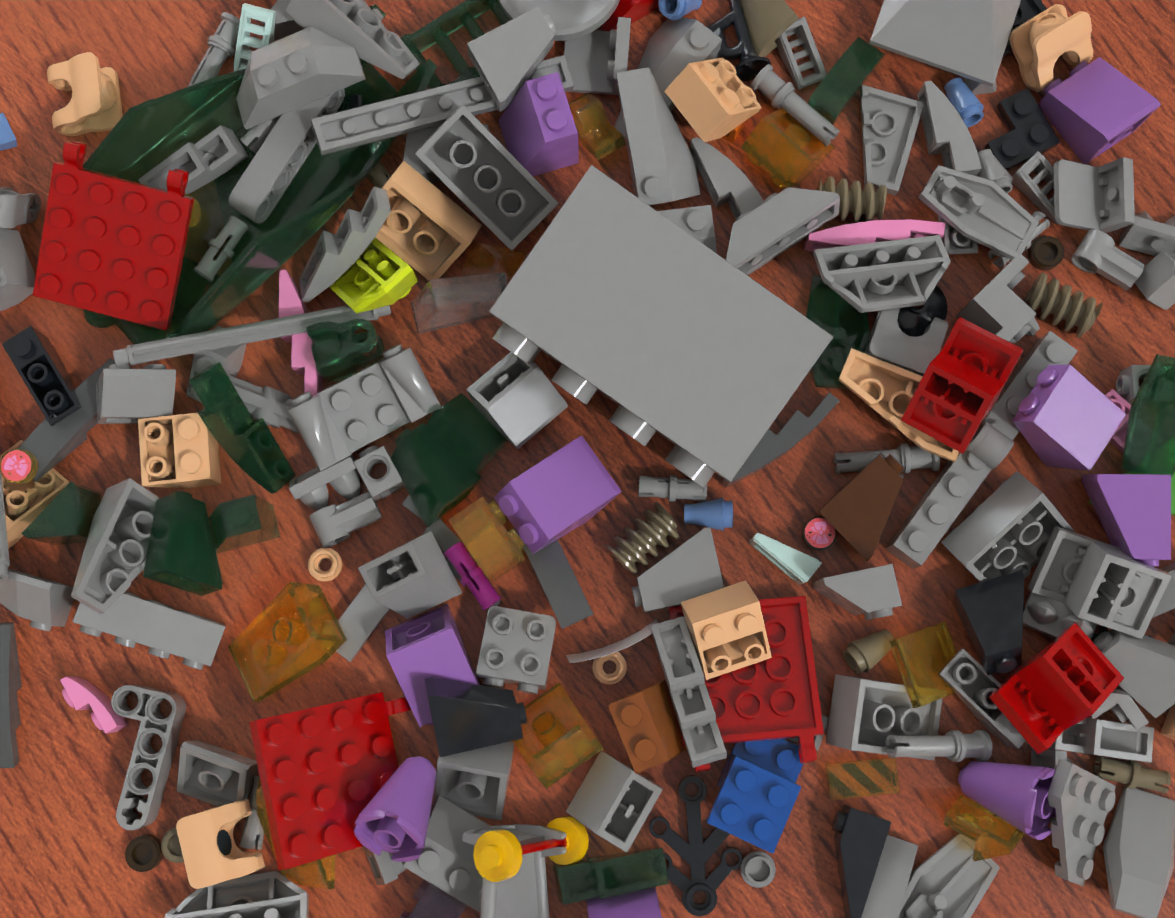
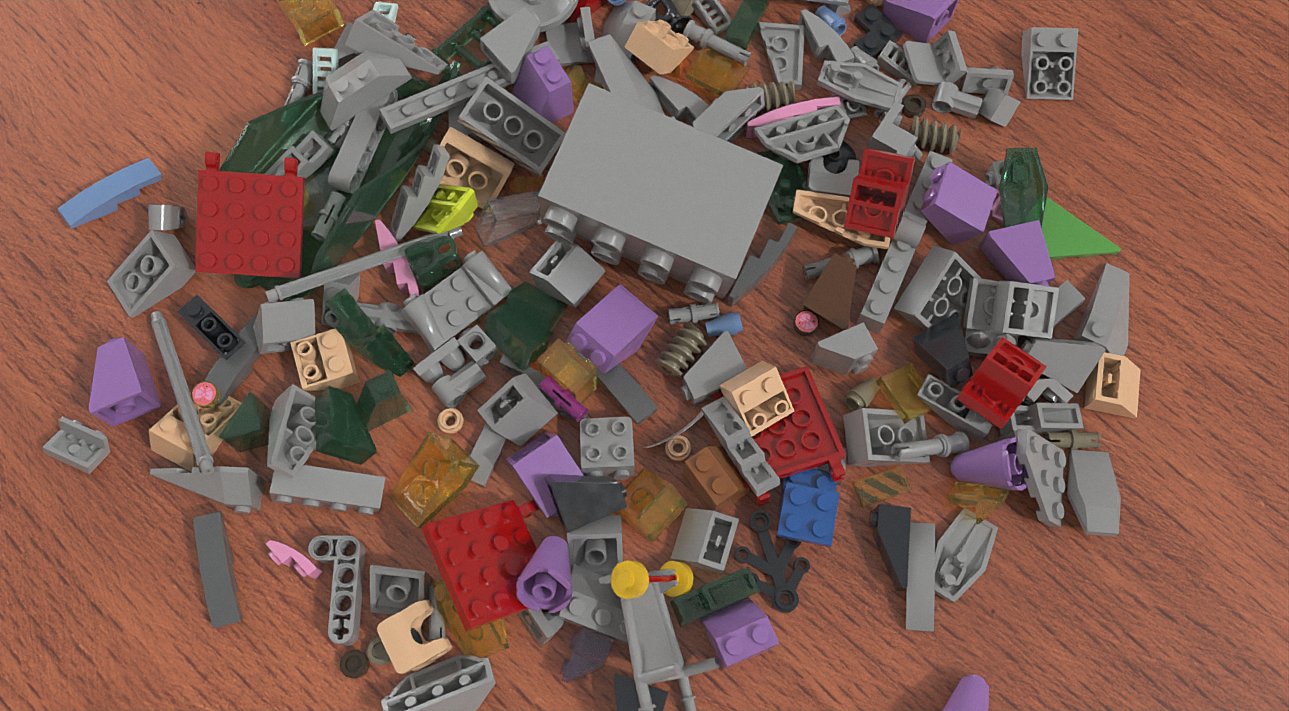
camera: 15 degrees left, 10 degrees down
(94, 98) = (213, 131): light nougat piece -> none
(758, 869) = (822, 568): light grey plate -> none
(789, 560) = (790, 344): light aqua slope -> none

